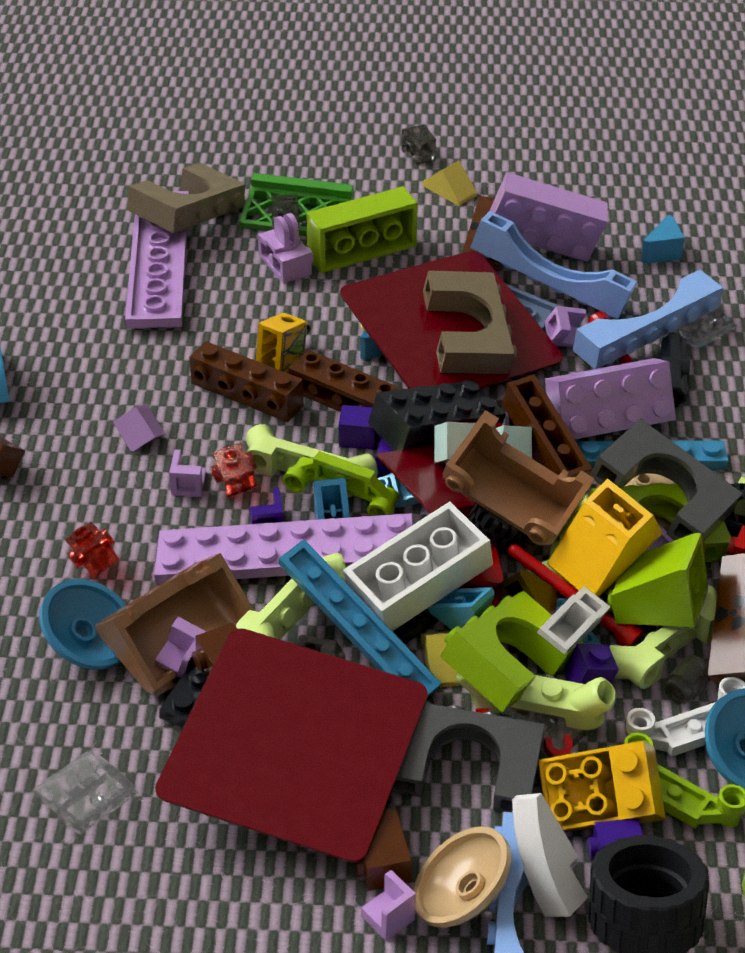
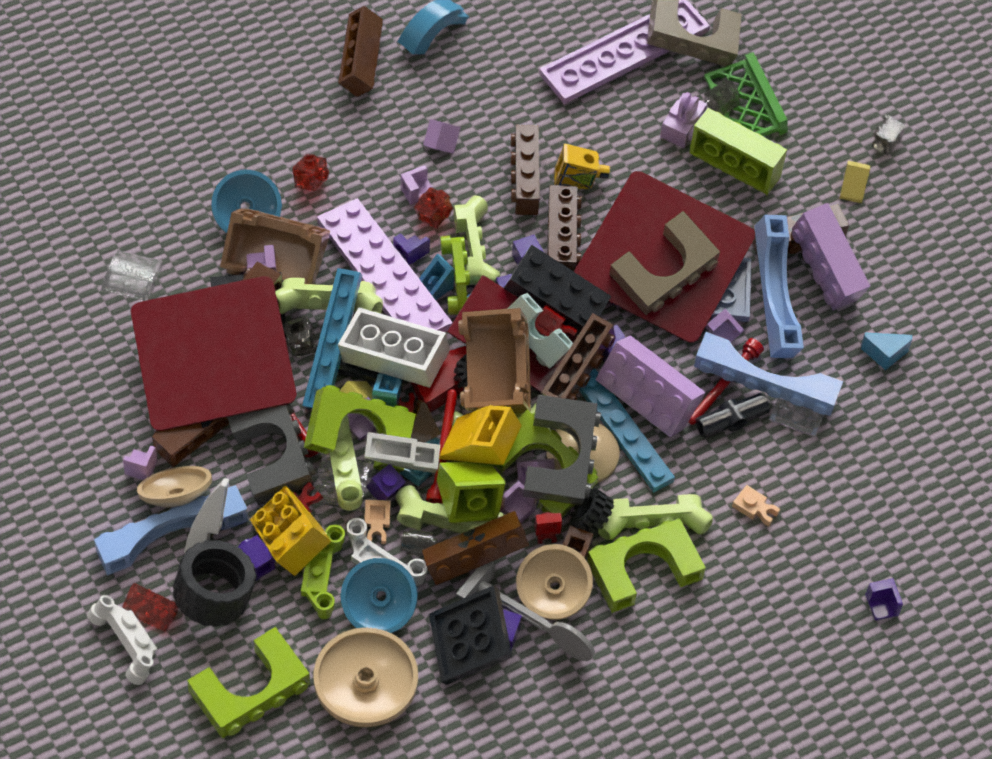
camera: 55 degrees right, 15 degrees up
(629, 698) = (377, 516): none -> light nougat plate

